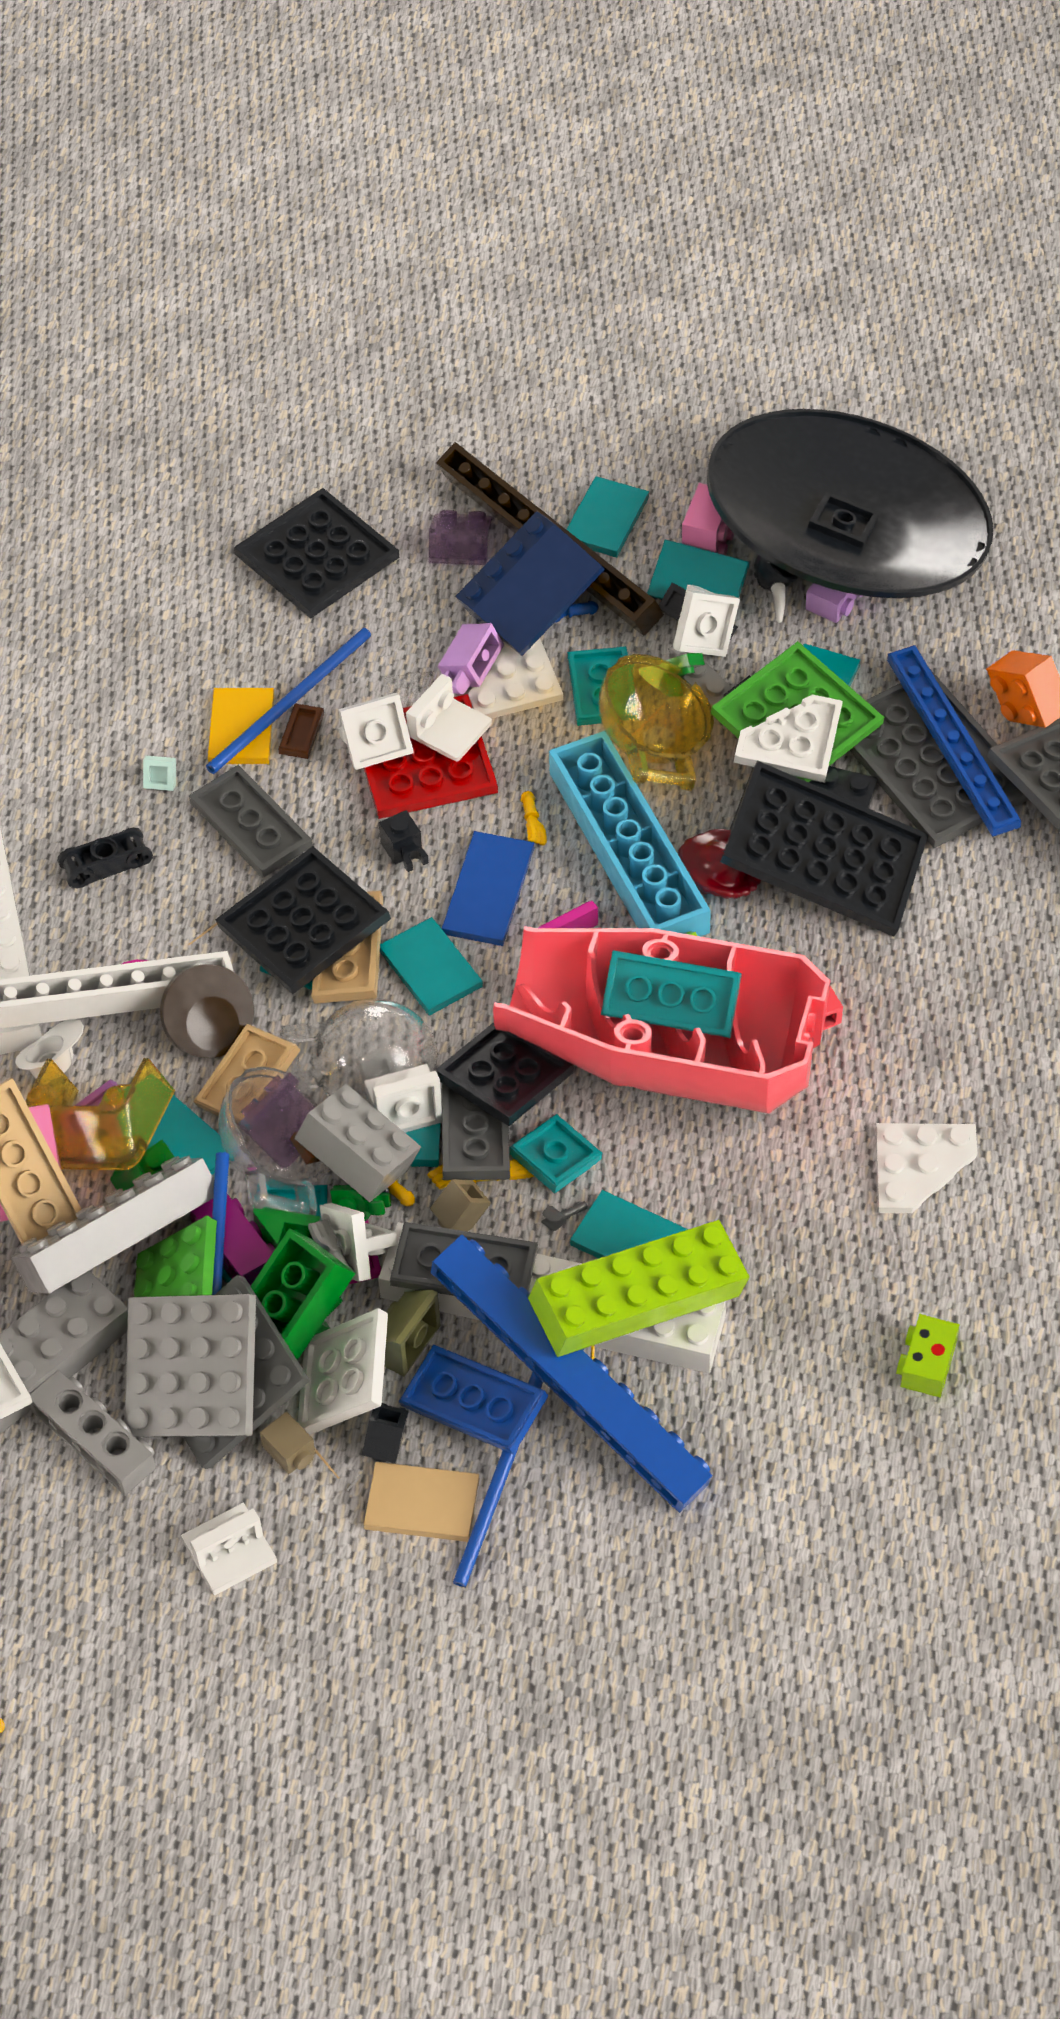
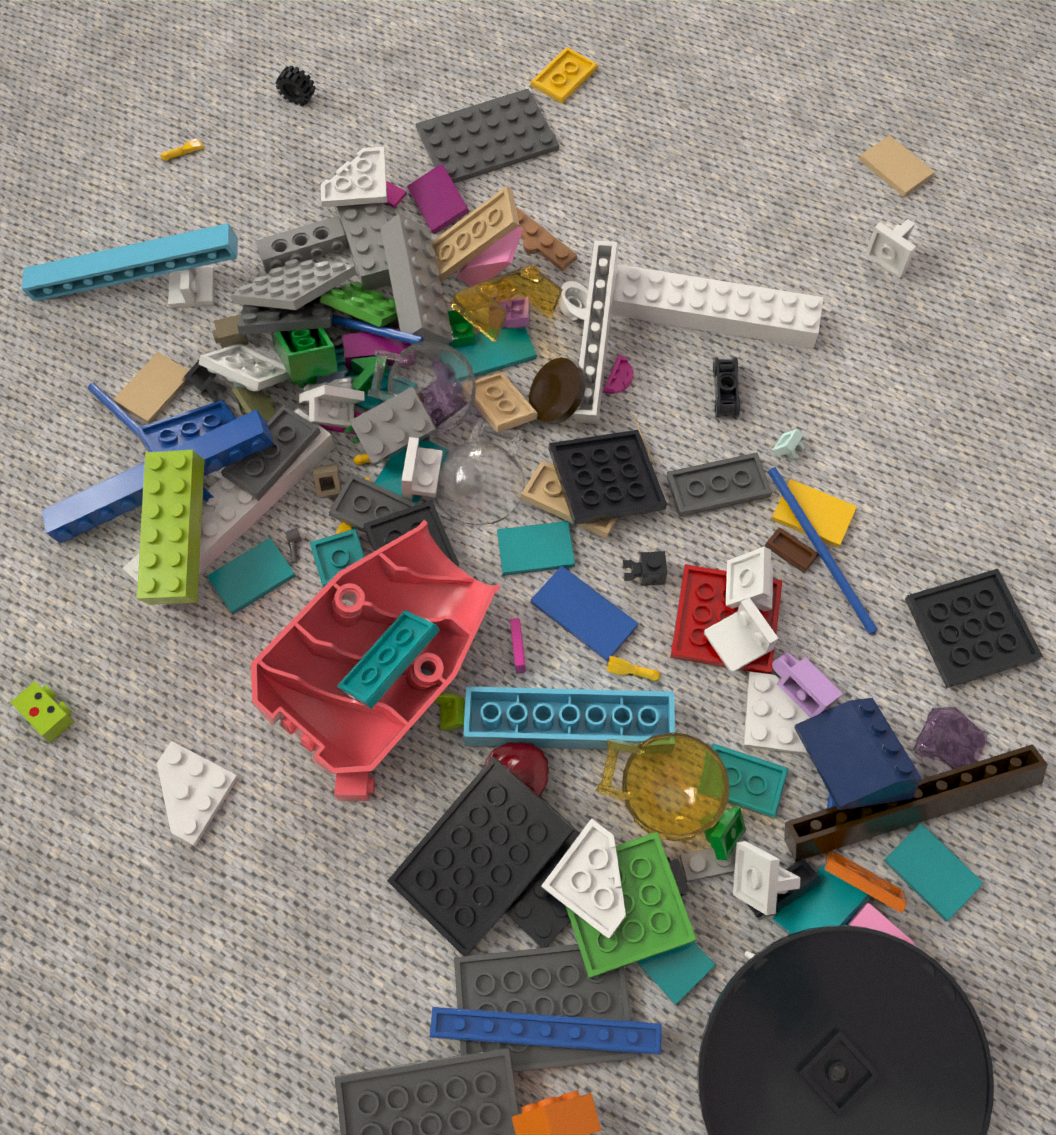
camera: 115 degrees right, 10 degrees up
(247, 1613) = (130, 262): none -> medium azure brick
(654, 547) = (865, 881): none -> orange tile

